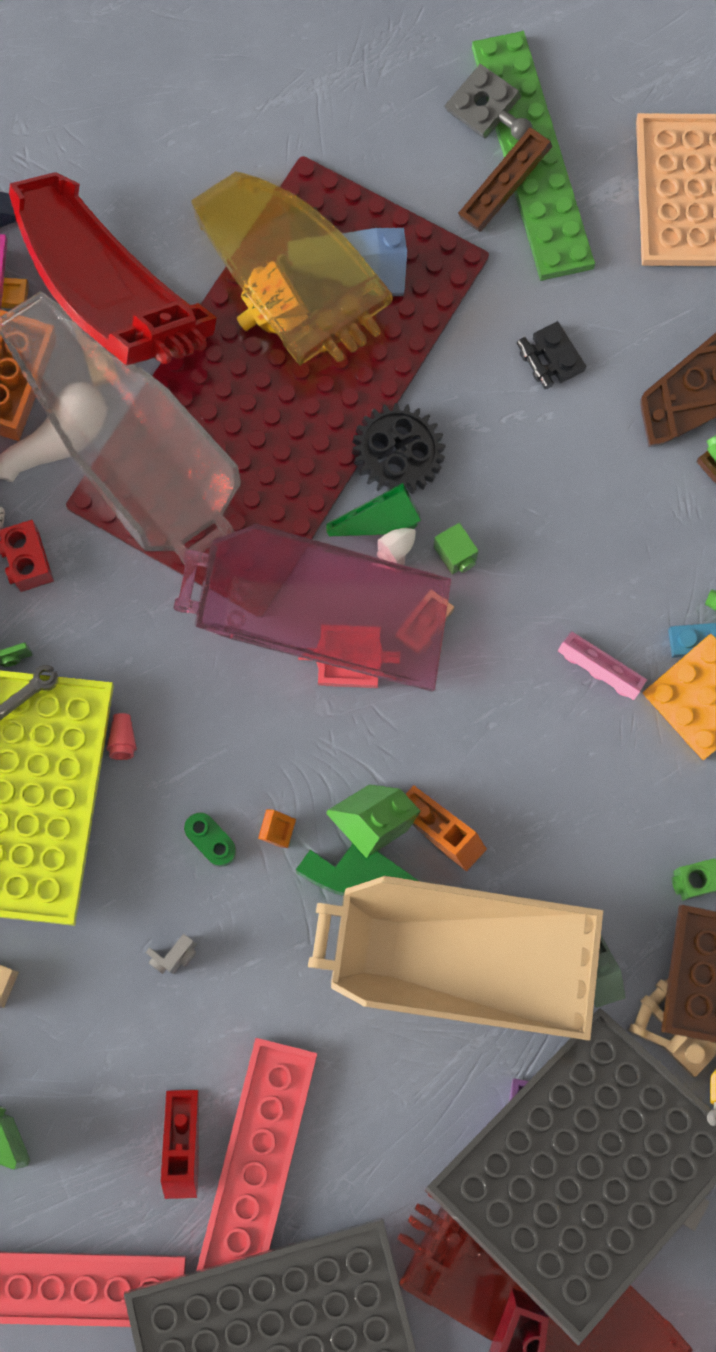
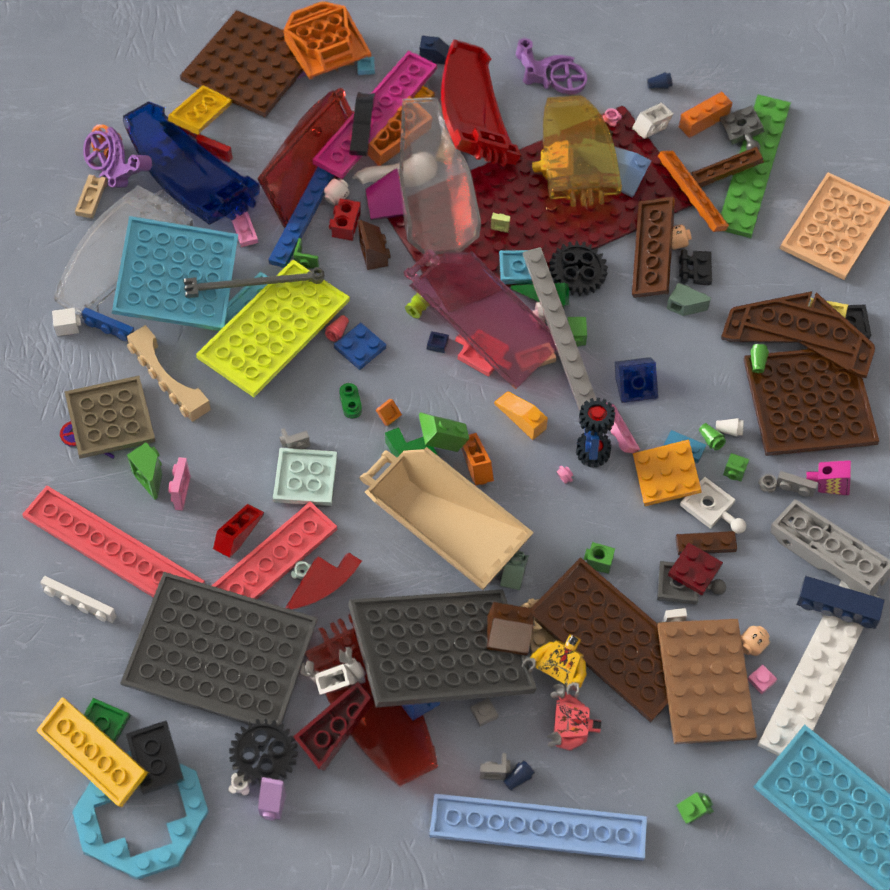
camera: 30 degrees right, 15 degrees down
(59, 1141) = (180, 483): none -> bright pink plate
(61, 488) = (385, 197): none -> magenta slope
(92, 577) = (373, 245): none -> reddish brown slope
(149, 162) = (536, 70): none -> medium lavender piece
(170, 745) = (360, 346): none -> blue plate
(211, 643) = (415, 307): none -> lime wheel
(222, 1001) = (305, 476): none -> light aqua plate
(250, 439) = (500, 222): none -> yellowish green plate
(274, 674) = (437, 342): none -> dark blue tile
(301, 178) = (612, 116): none -> bright pink plate
(315, 494) = (513, 268): none -> medium azure tile
(318, 1155) = (298, 567): none -> light aqua plate
(331, 90) = (660, 81): none -> dark blue cone
(352, 1157) = (322, 580): none -> red slope
(362, 160) = (652, 120): none -> white brick
(424, 111) = (705, 114): none -> orange brick
(443, 568) = (559, 326): none -> light grey plate
(458, 720) = (523, 414): none -> light orange slope
(478, 1305) = (339, 677): none -> white torso
(481, 241) = (693, 191): none -> orange plate
(483, 360) = (653, 247): none -> reddish brown plate
(502, 324) = (680, 237): none -> light nougat head
(572, 416) = (687, 301): none -> sand green slope
(574, 779) = (565, 474): none -> bright pink plate
(579, 576) = (636, 379): none -> clear blue slope
(592, 703) = (595, 420): none -> black plate
(660, 1077) = (509, 628): none -> reddish brown slope

